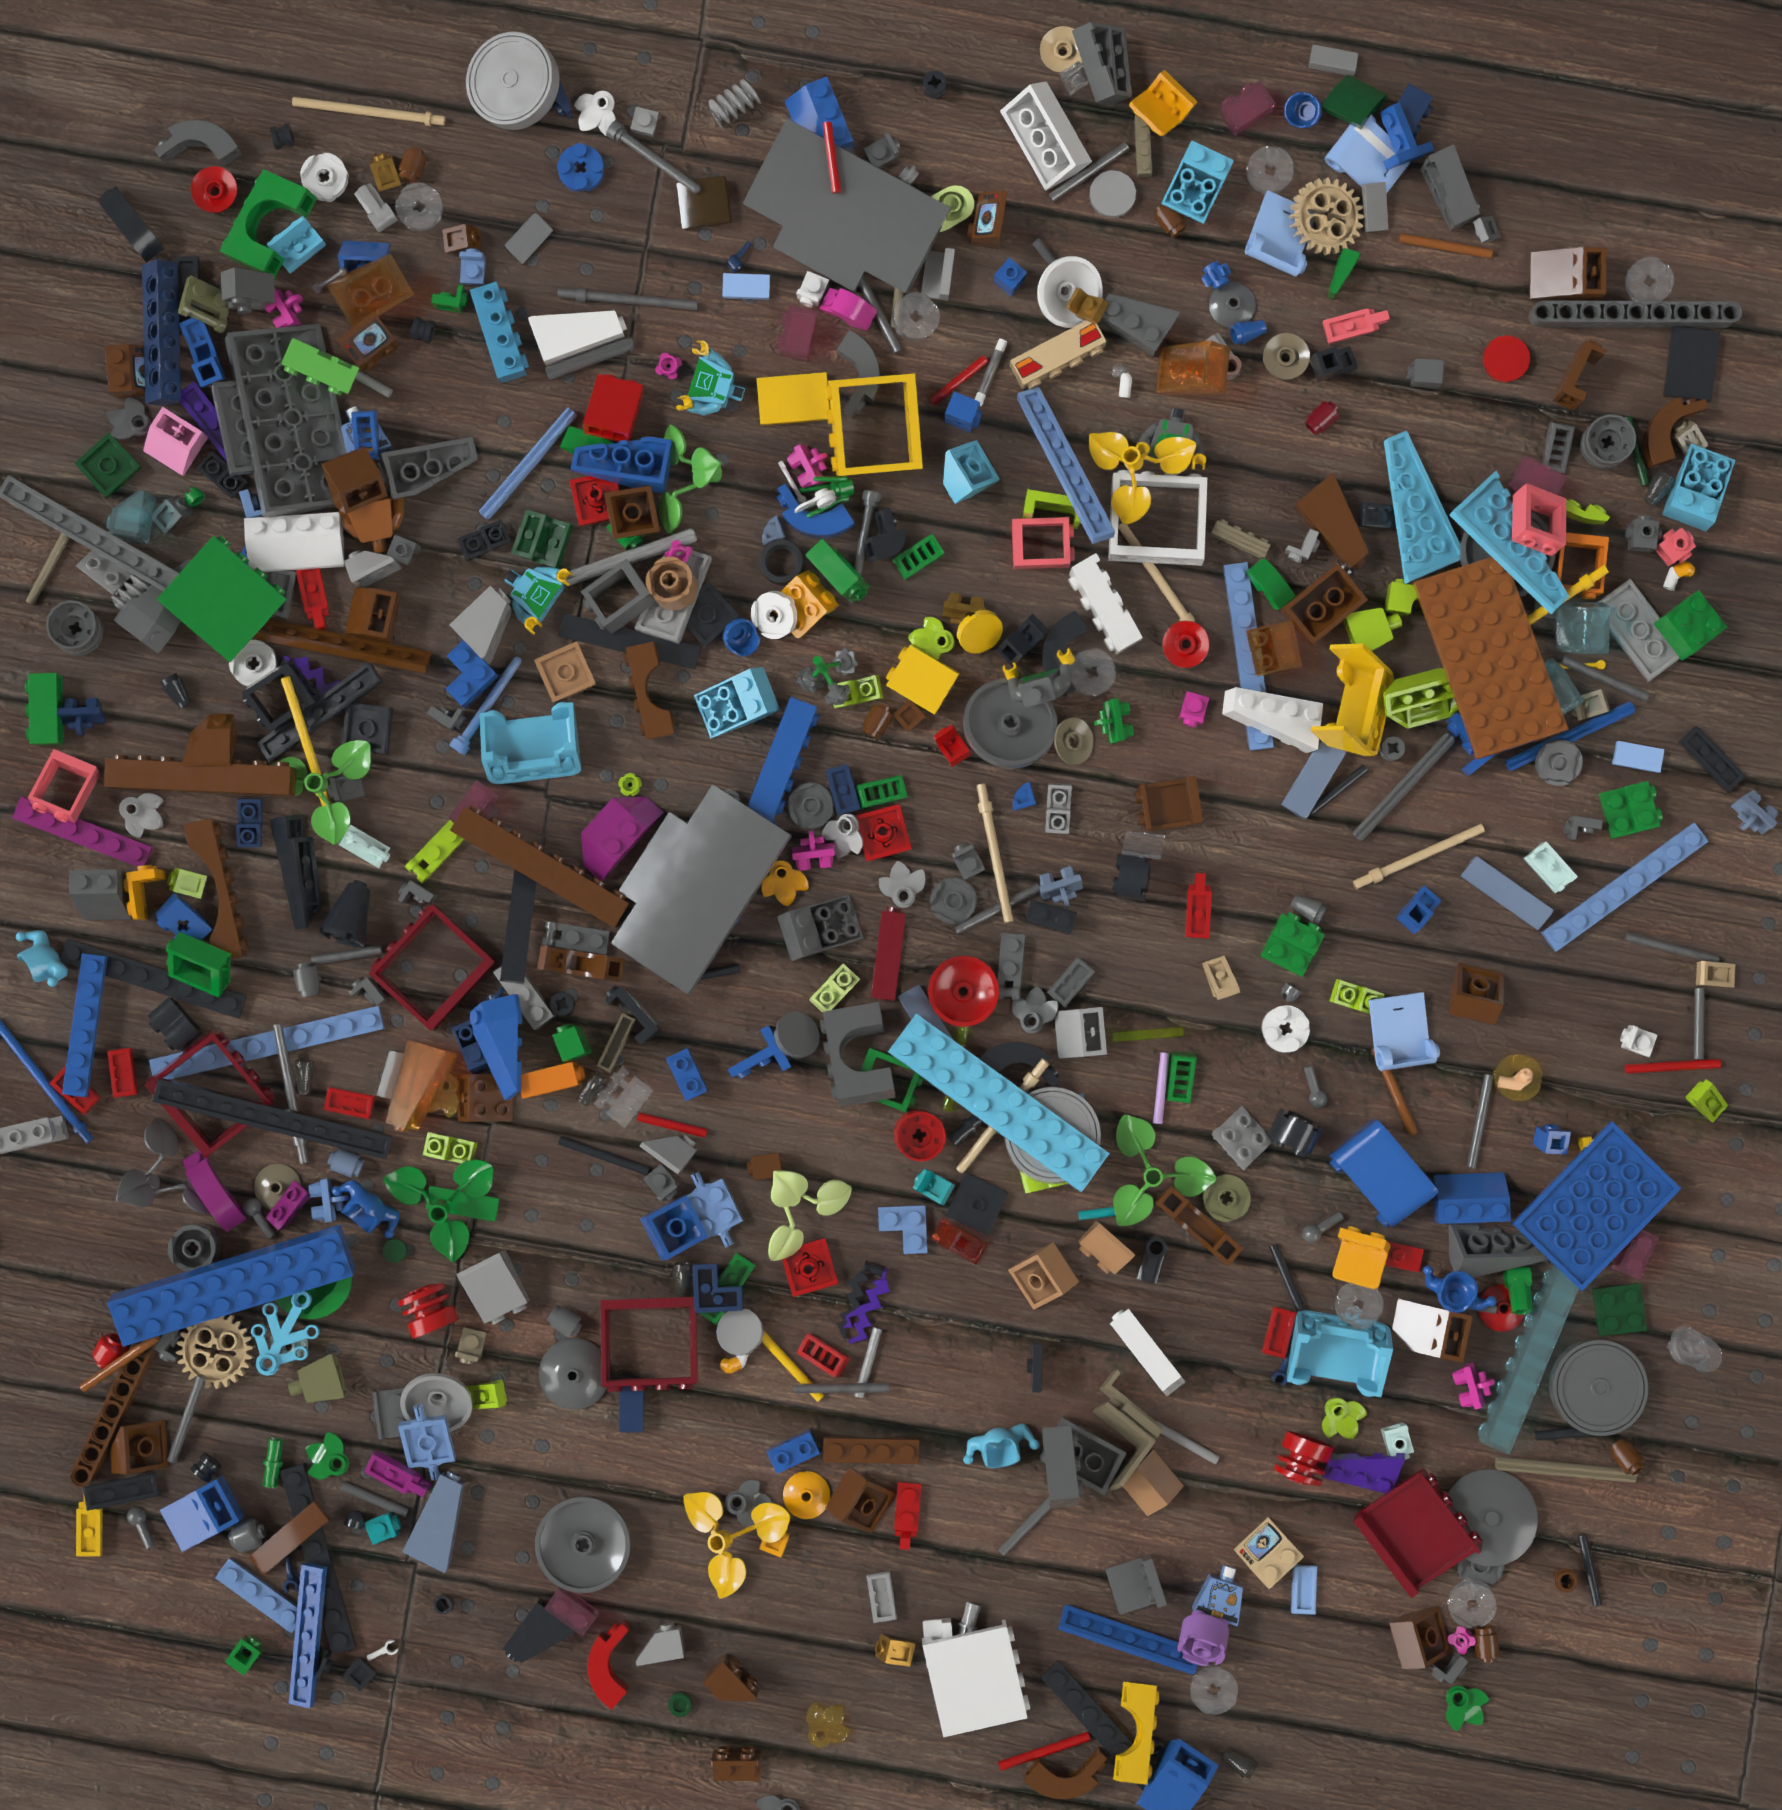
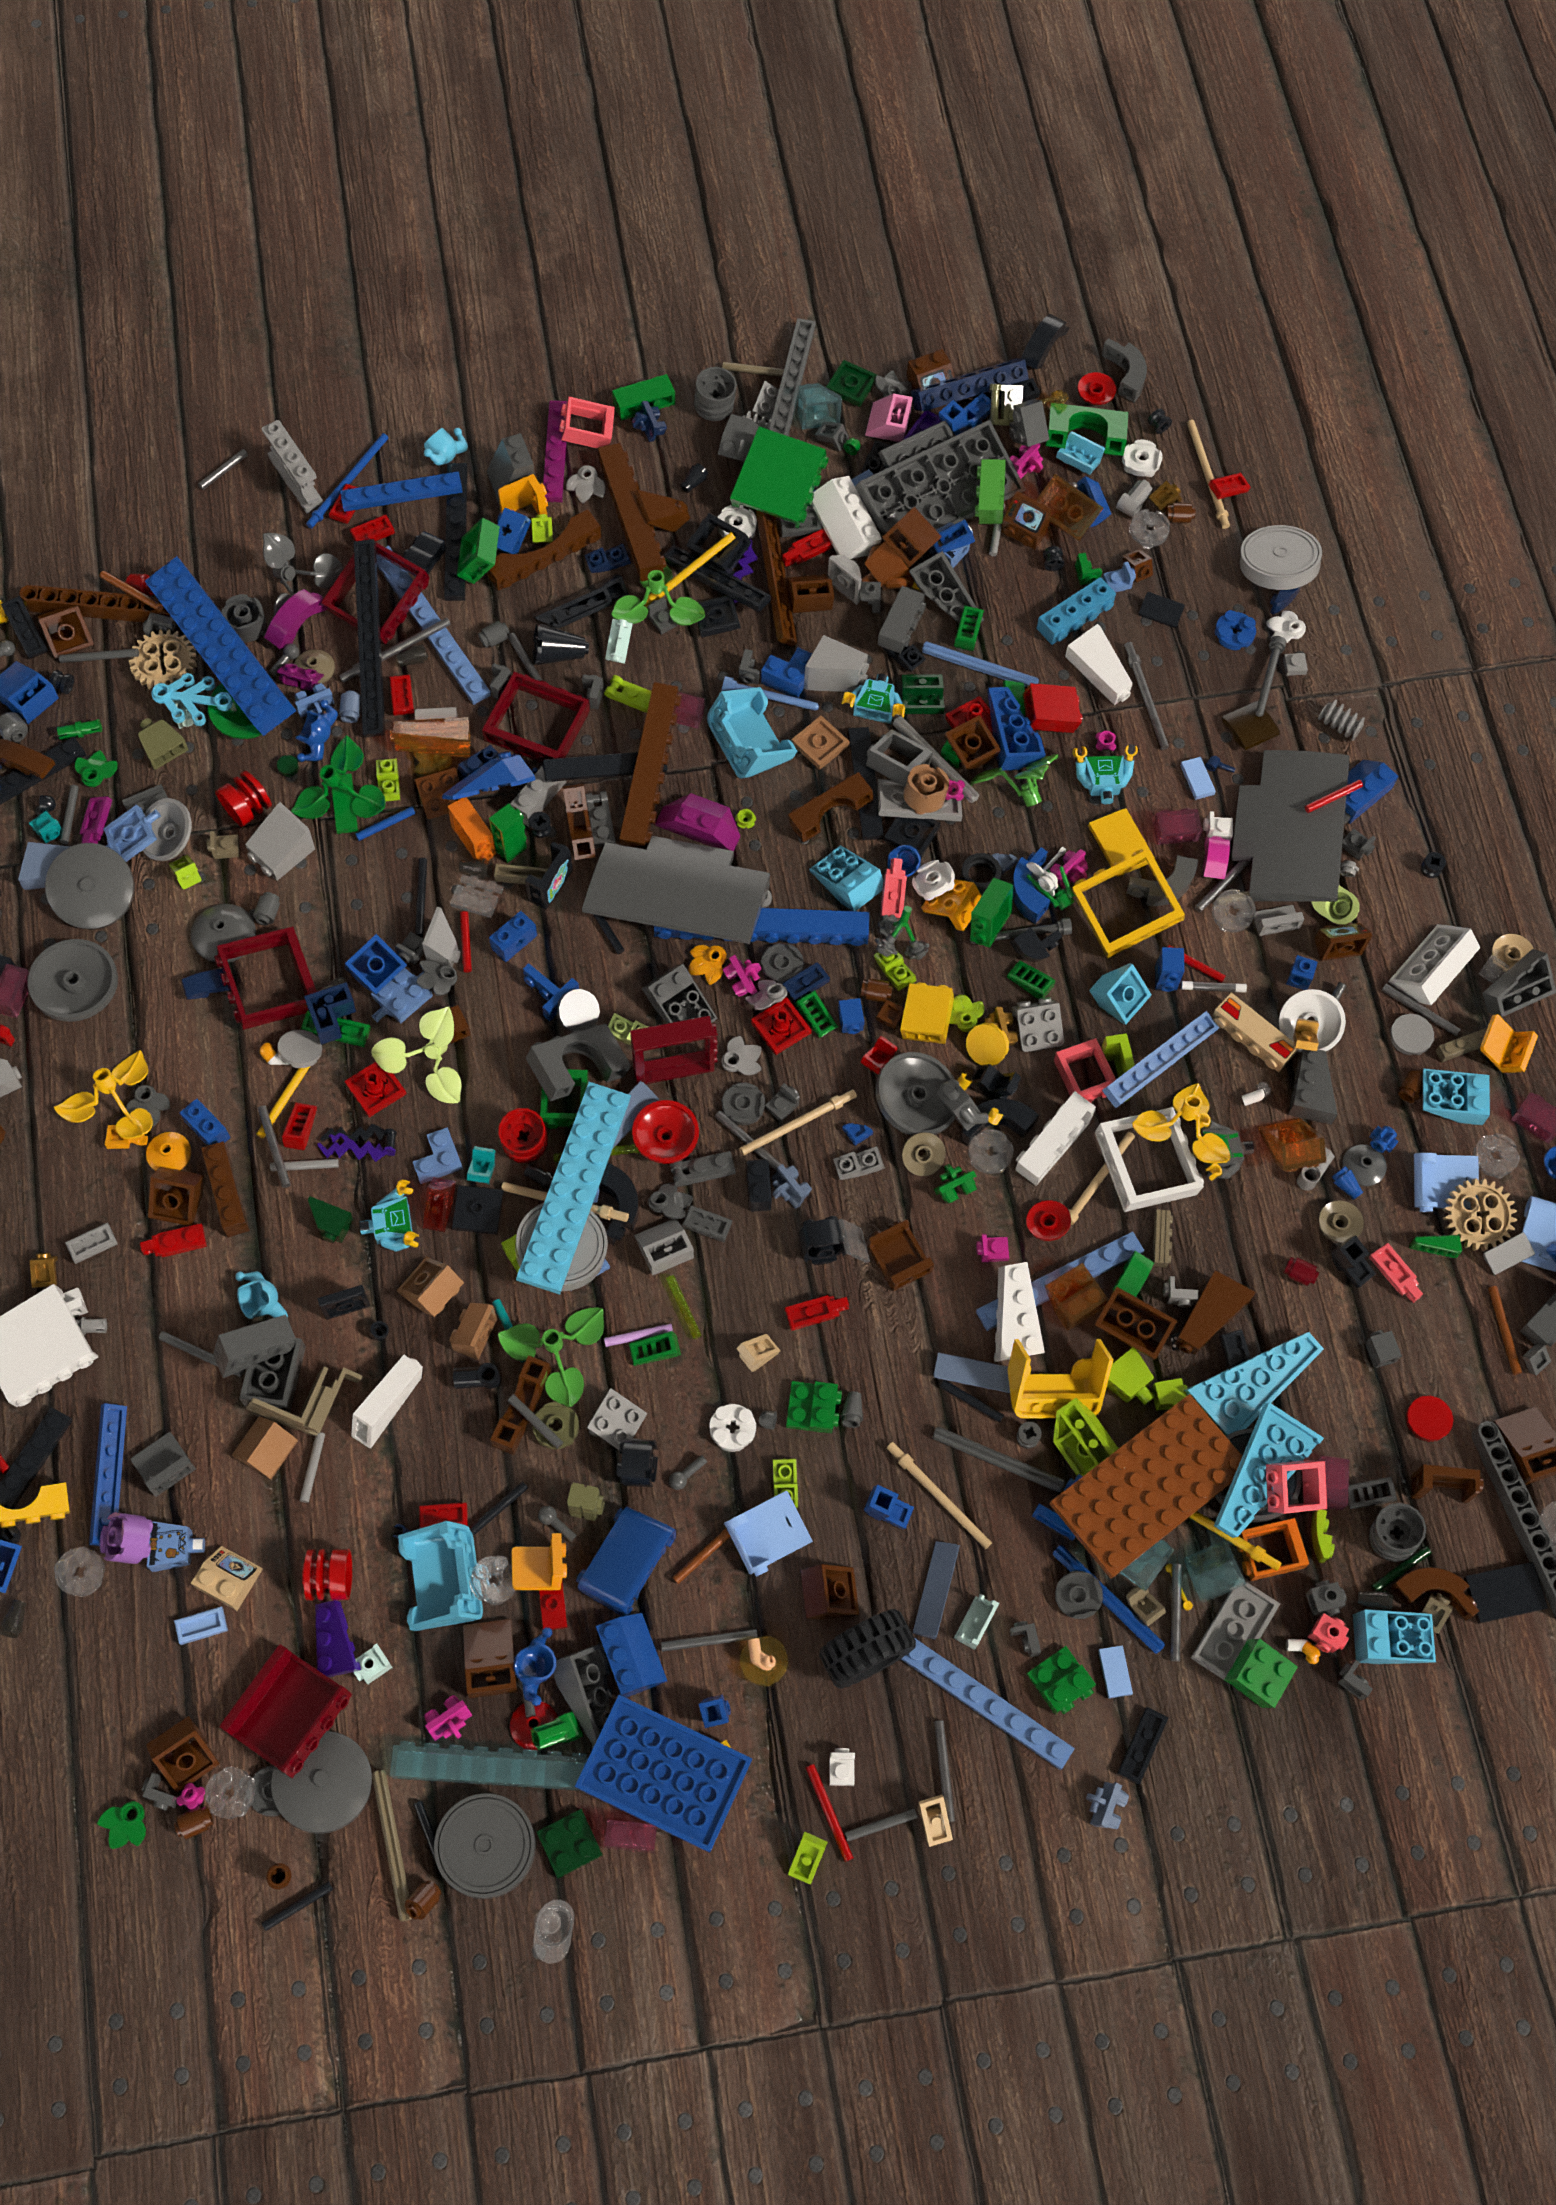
camera: 60 degrees right, 20 degrees down
(212, 241) = (1056, 397): none -> clear yellow plate
(395, 95) = (1229, 486): none -> red plate
(454, 530) = (902, 620): none -> dark grey wedge
(478, 1499) = (89, 886): none -> dark grey dish
(483, 451) = (965, 640): none -> green slope
(502, 1167) = (385, 823): none -> blue bar
(590, 358) = (1085, 682): dark grey axle -> none
(707, 1171) = (437, 977): none -> dark grey plate
(772, 660) = (893, 889): none -> coral hinge
(898, 757) = (851, 1016): none -> blue brick
(939, 1354) = (330, 1220): none -> dark green slope
(964, 1293) = (392, 1220): none -> torso
(971, 569) = (1039, 1024): none -> light grey bracket
(1071, 1334) = (383, 1330): none -> black hinge
(1220, 1216) = (535, 1421): none -> dark grey bar
(1317, 1194) = (585, 1502): none -> olive brick
(1344, 1420) = (377, 1608): lime plate -> none
(1552, 981) = (867, 1648): none -> black tyre
(1729, 539) = (1355, 1684): none -> dark grey bracket

